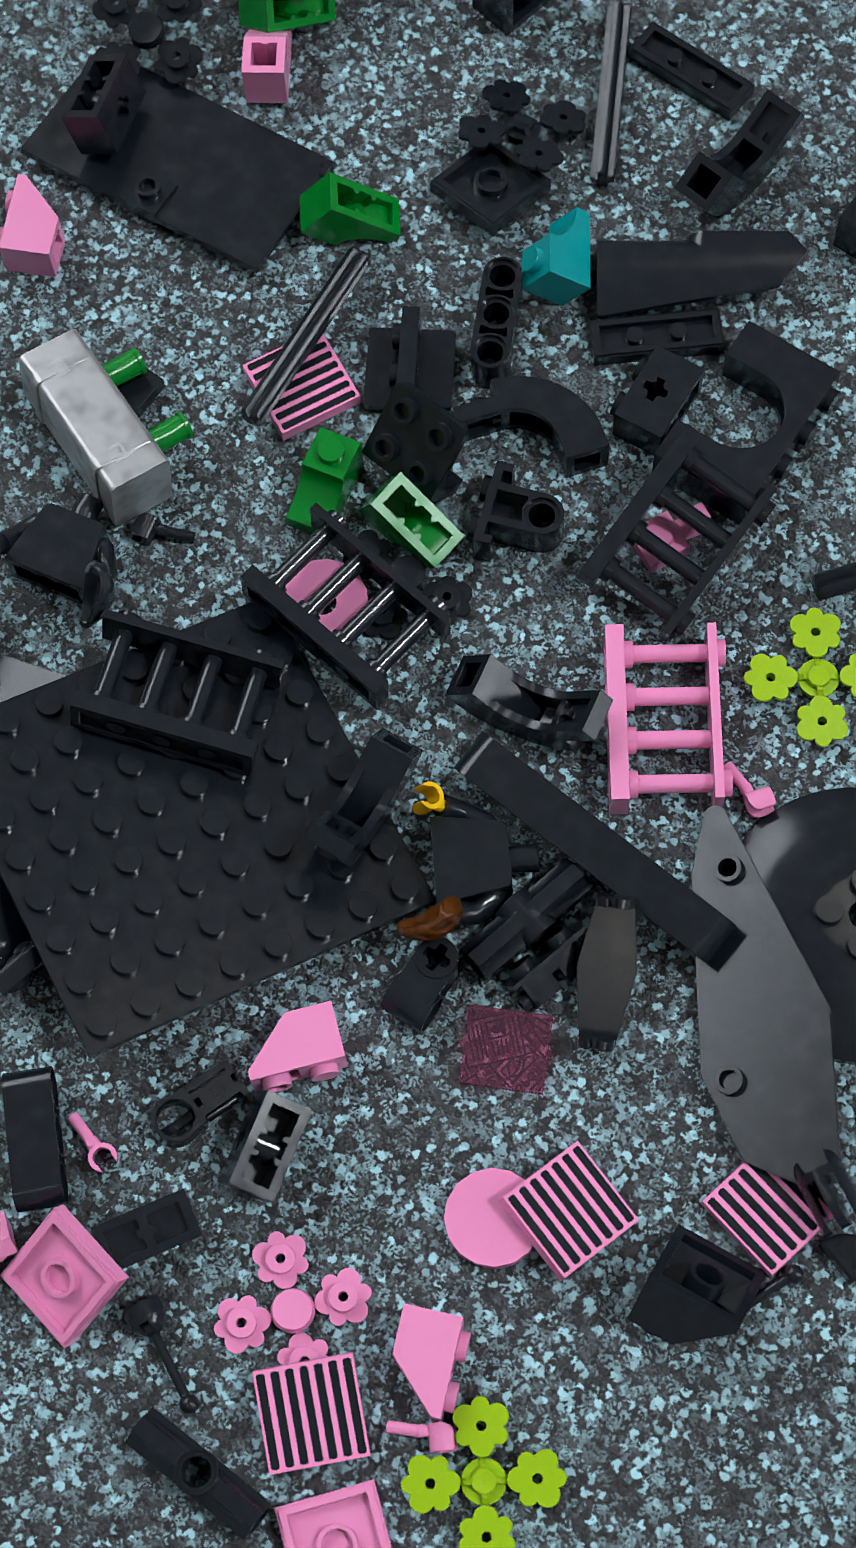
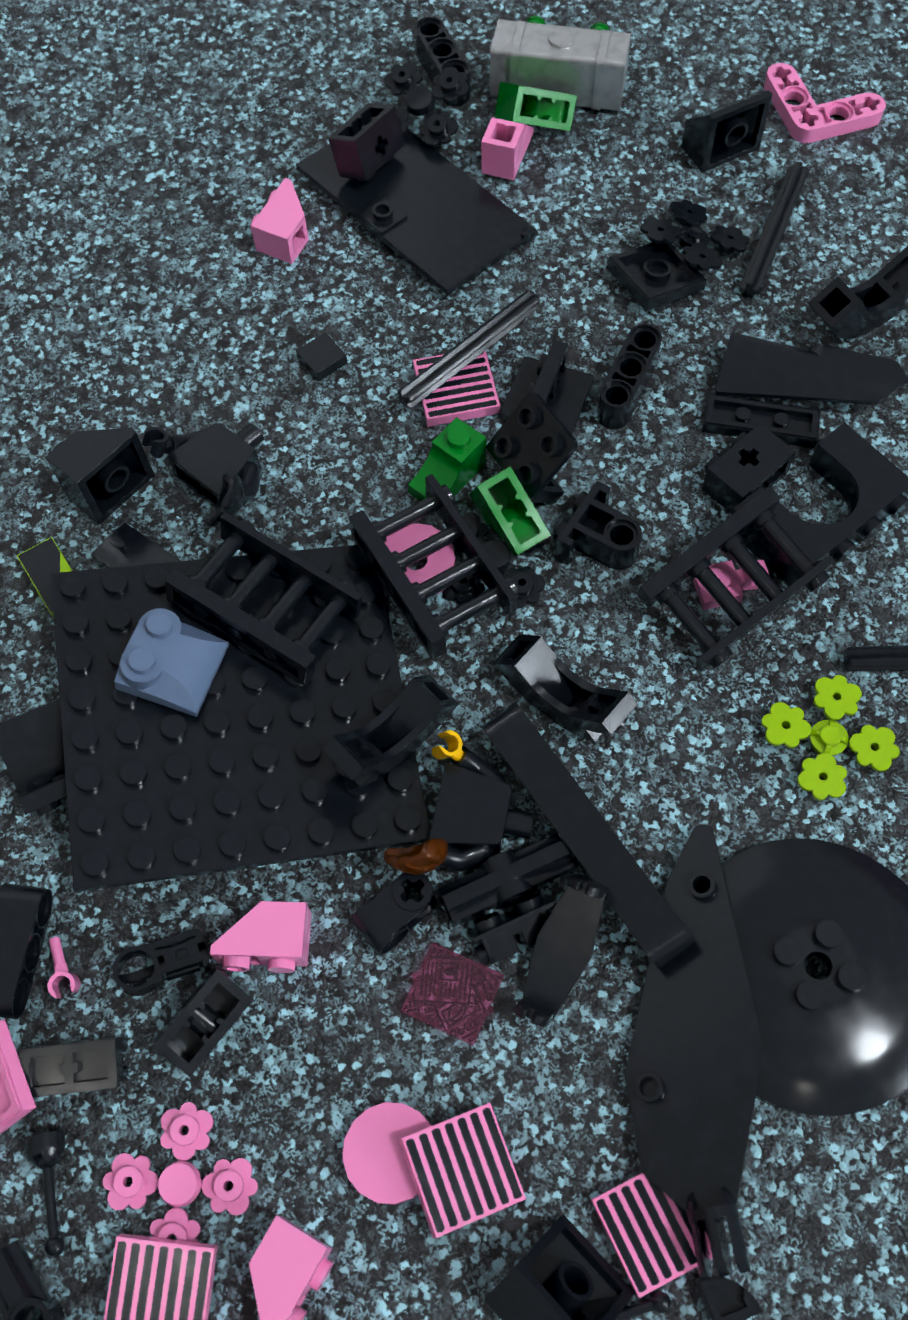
camera: 15 degrees right, 5 degrees down
(98, 426) = (279, 376): flat silver piece -> none
(103, 791) = (170, 662): none -> sand blue slope
(148, 526) = (293, 464): black hand -> none
(346, 210) = (533, 263): green arch -> none
(542, 409) = (647, 452): black arch -> none
(560, 261) = (695, 340): teal arch -> none
(626, 740) = (641, 745): bright pink fence -> none
(691, 71) = (845, 228): black tile -> none
(757, 802) = (744, 832): bright pink hand -> none

